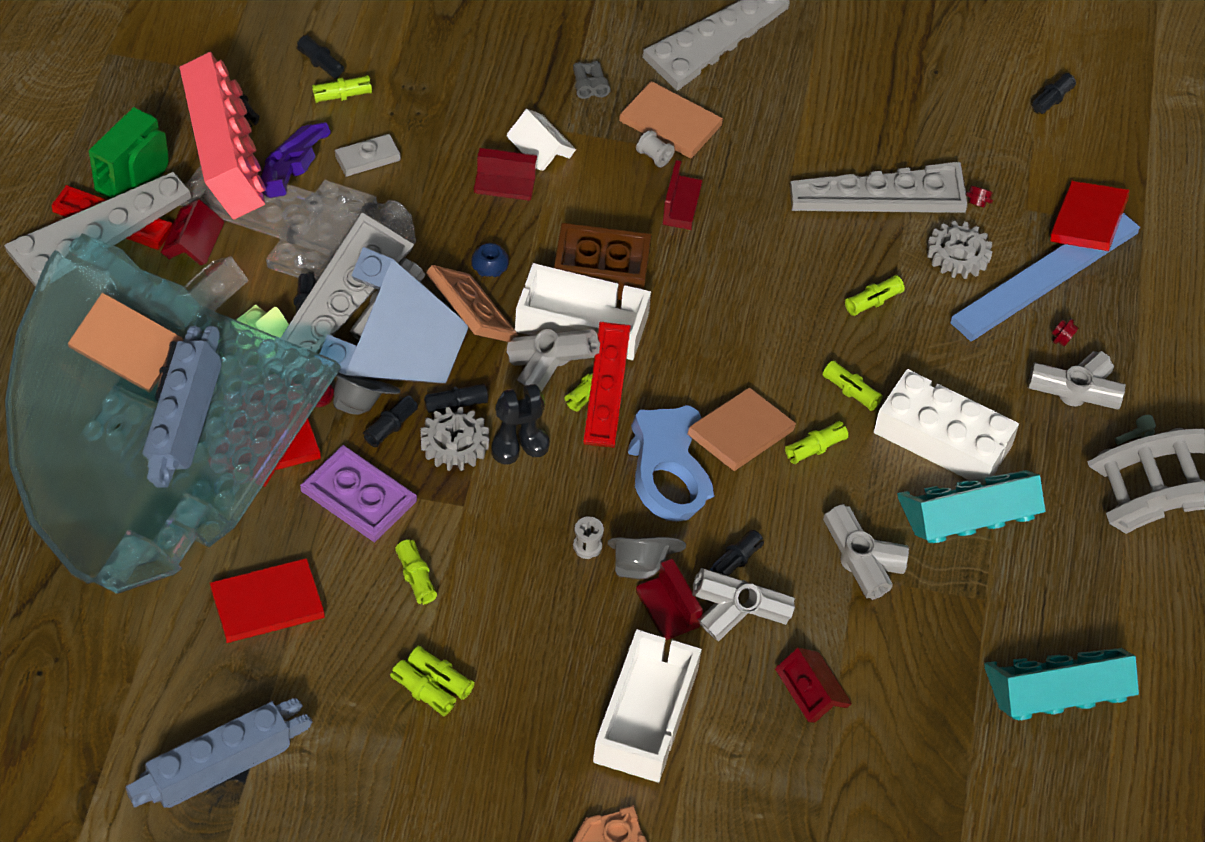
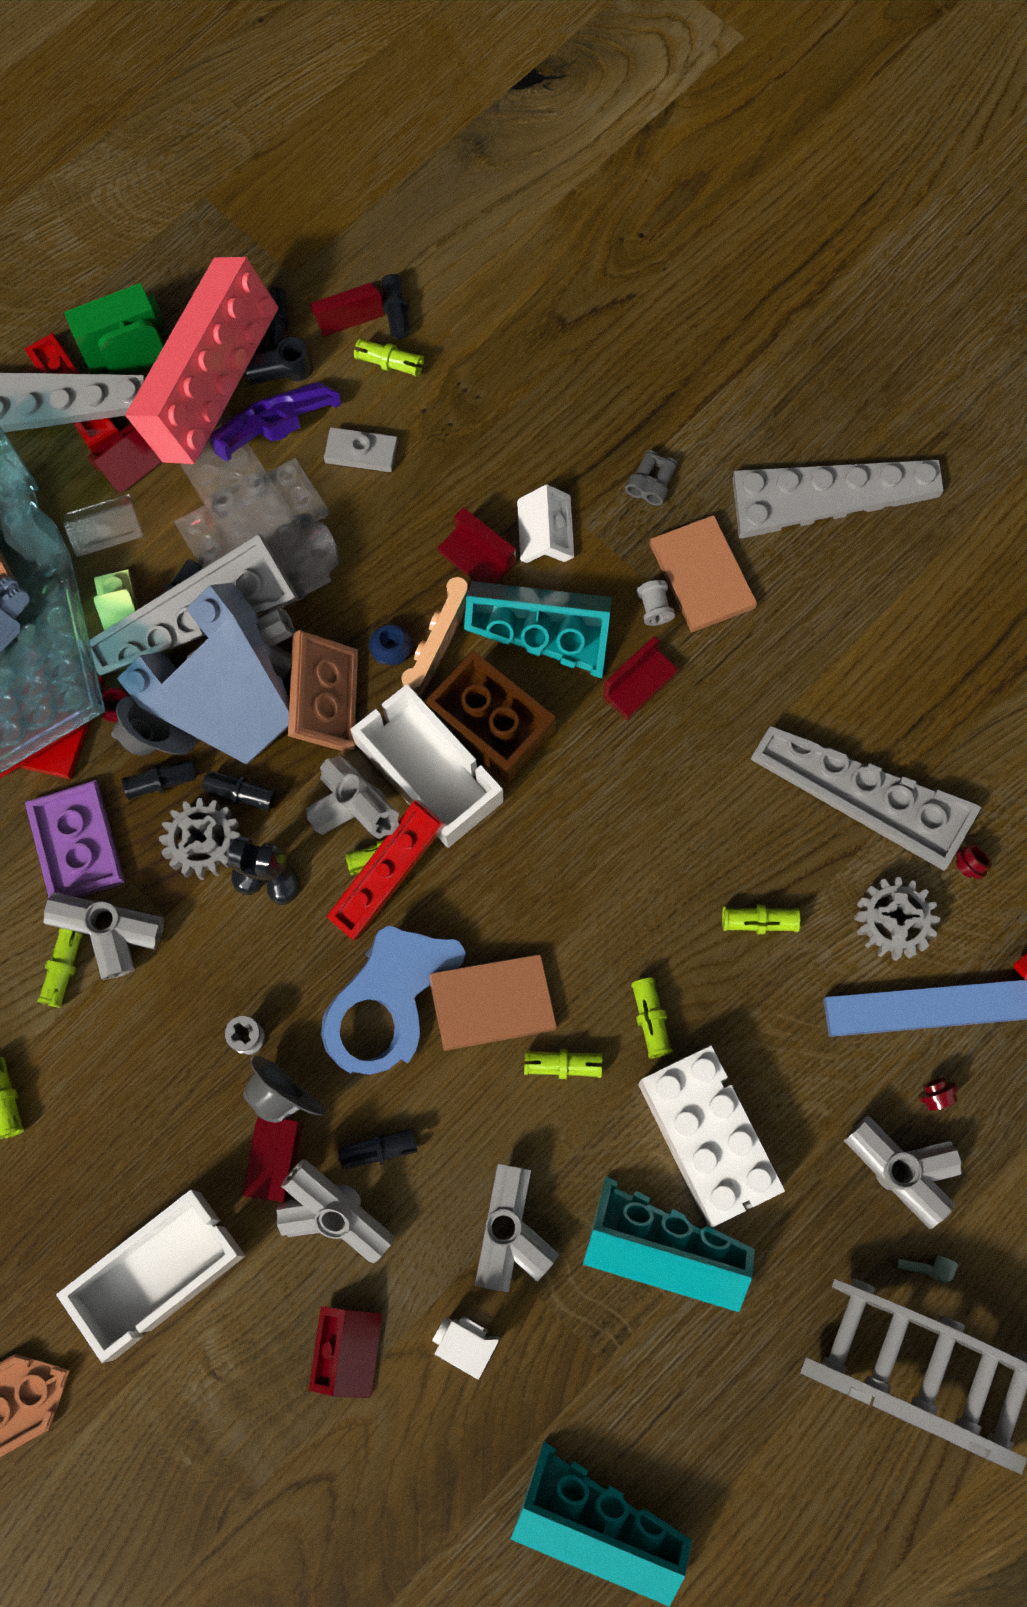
camera: 40 degrees right, 20 degrees up
(269, 123) = (277, 363): none -> black piece
(285, 73) = (347, 309): none -> dark red panel
(442, 532) = (111, 943): none -> light grey piece
(521, 230) = (442, 628): none -> light nougat plate
(598, 191) = (542, 621): none -> teal wedge
(892, 621) = (465, 1345): none -> white window

